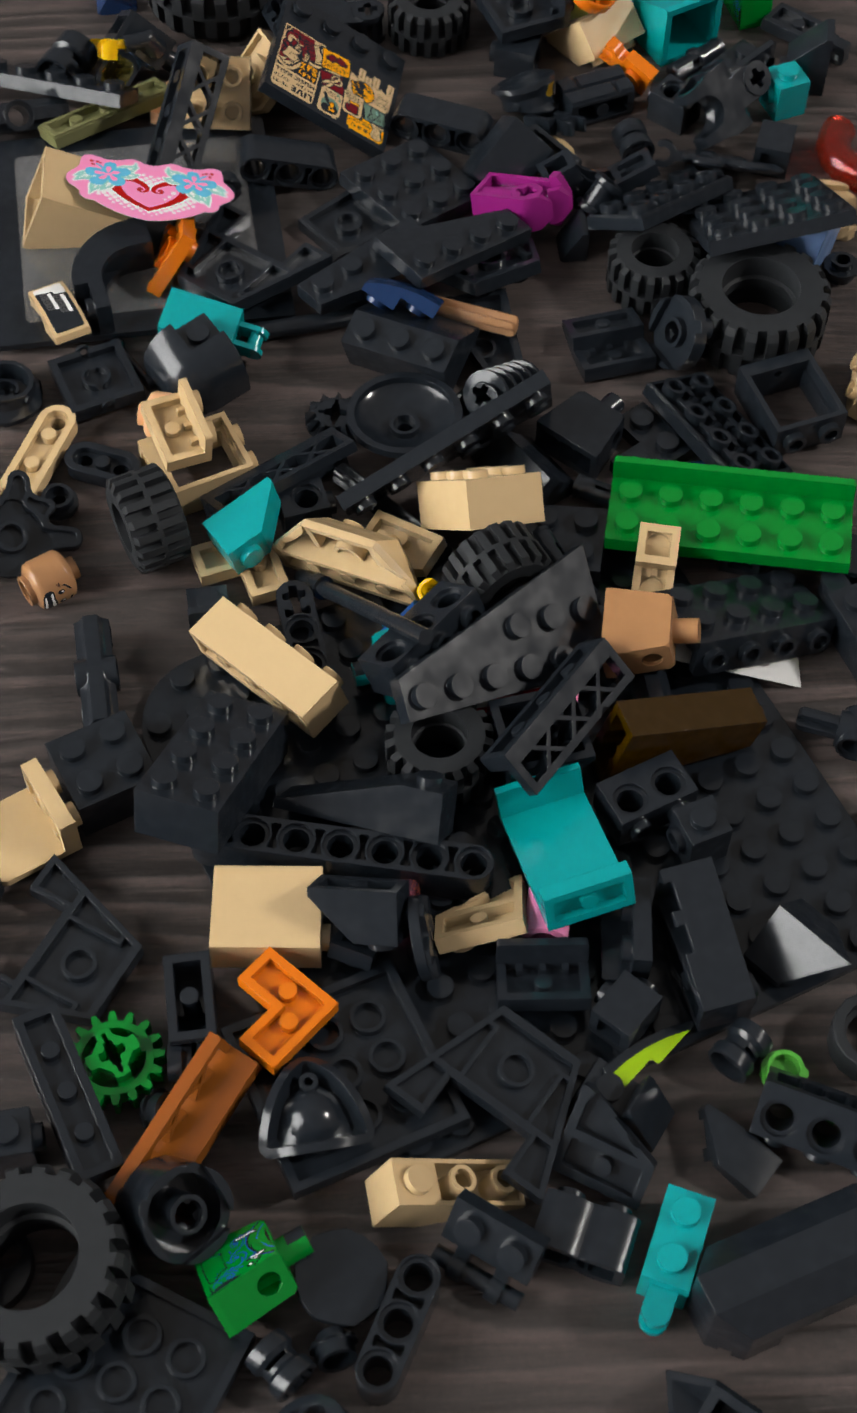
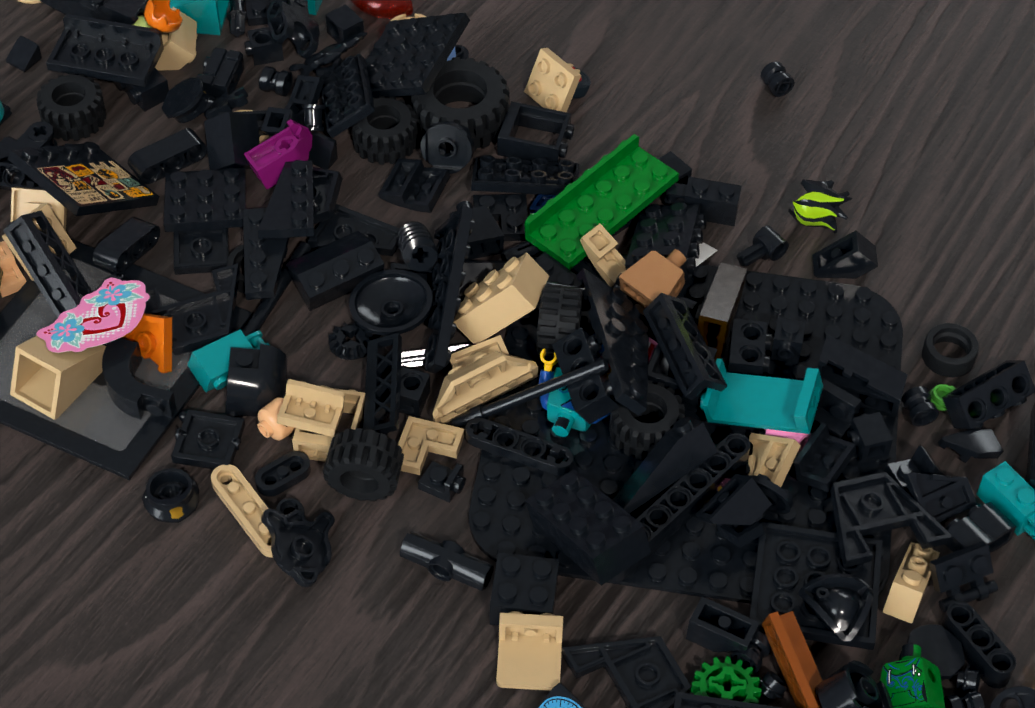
camera: 55 degrees left, 5 degrees down
(49, 579) = (350, 547): medium nougat head -> none
(59, 312) = (143, 426): slope -> none
(246, 526) = (415, 421): teal slope -> none
(264, 910) = (692, 561): tan brick -> none
(269, 665) = (525, 464): tan brick -> none
(293, 1008) = (765, 576): orange plate -> none
(389, 293) = (308, 247): dark blue slope -> none
(480, 317) = (340, 230): medium nougat axle -> none
(633, 64) = (220, 40): orange plate -> none
(653, 1048) = (897, 452): sticker -> none
(796, 944) = (884, 340): black slope -> none

